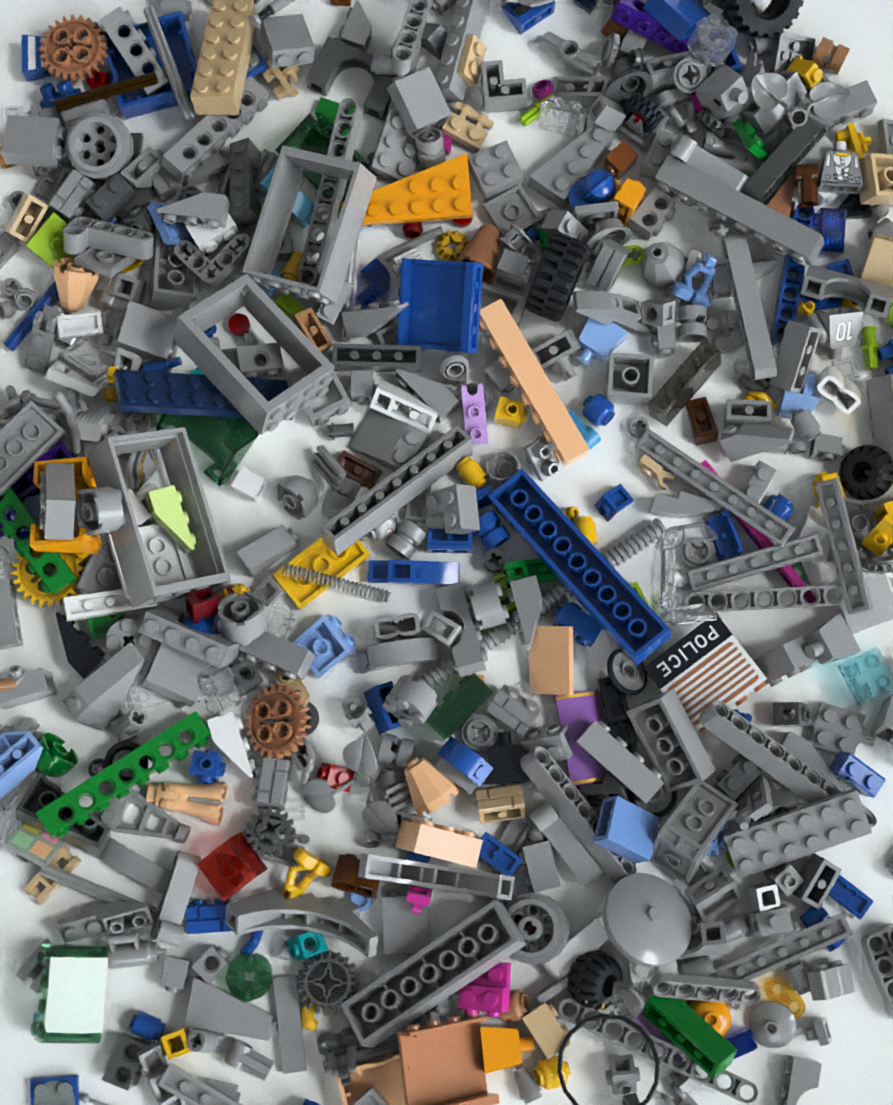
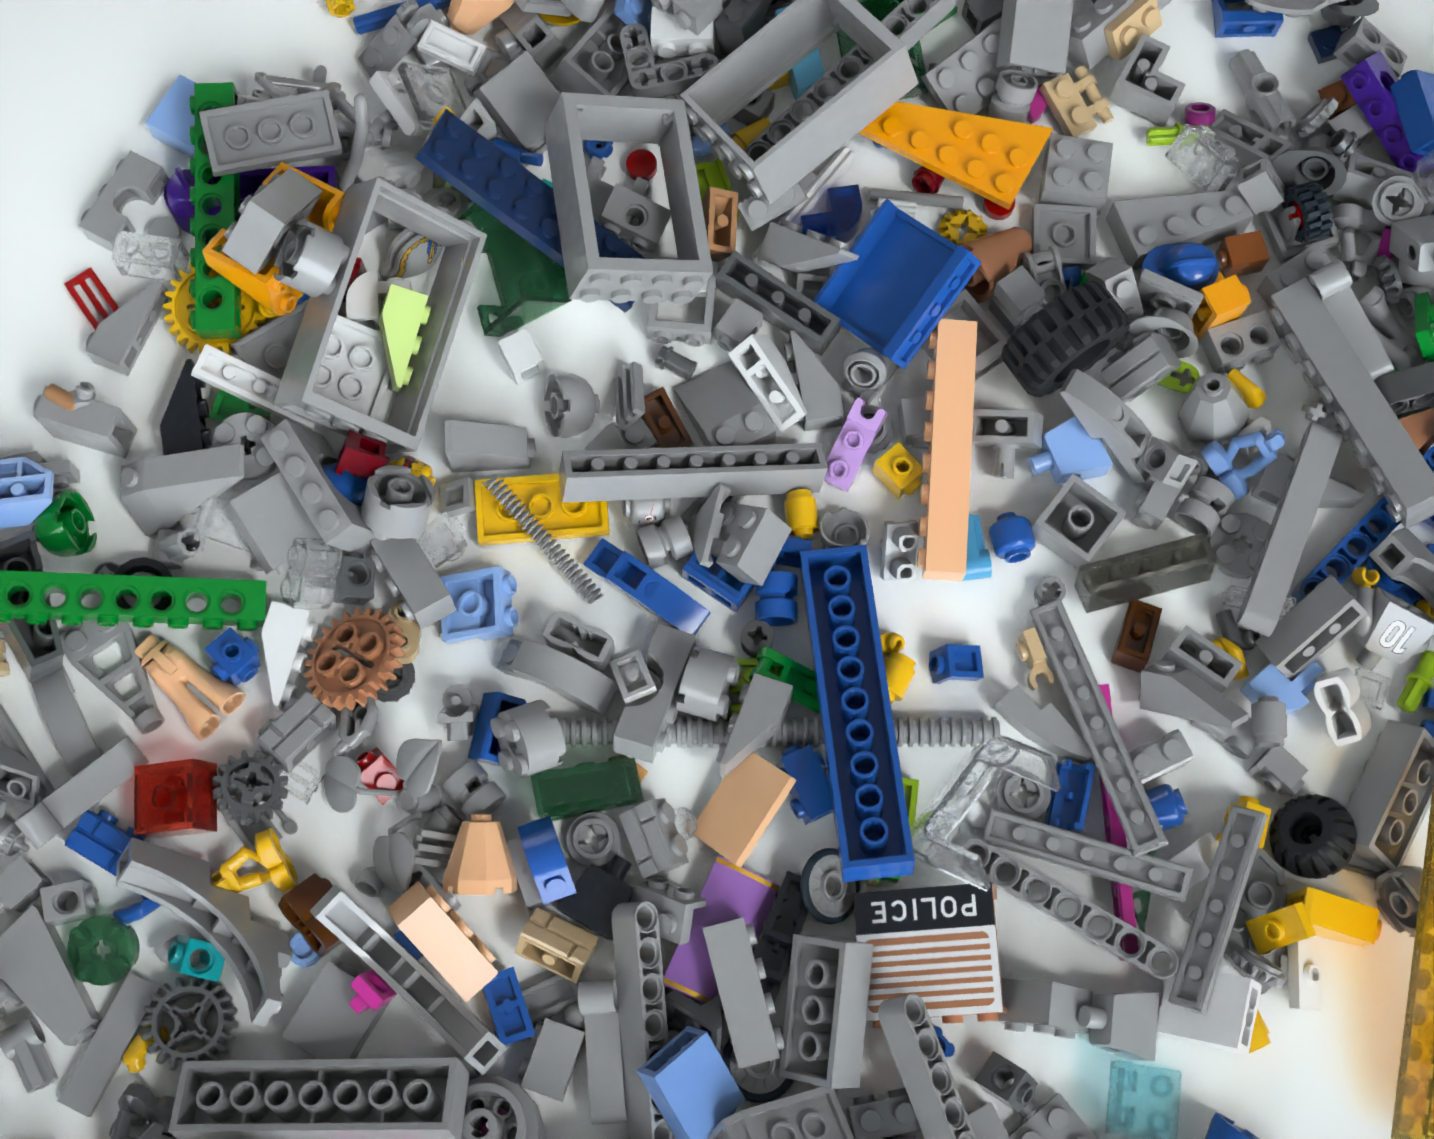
camera: 30 degrees right, 5 degrees down
(425, 514) = (708, 524): none -> light grey tile
(677, 240) = (1251, 393): none -> yellow arm

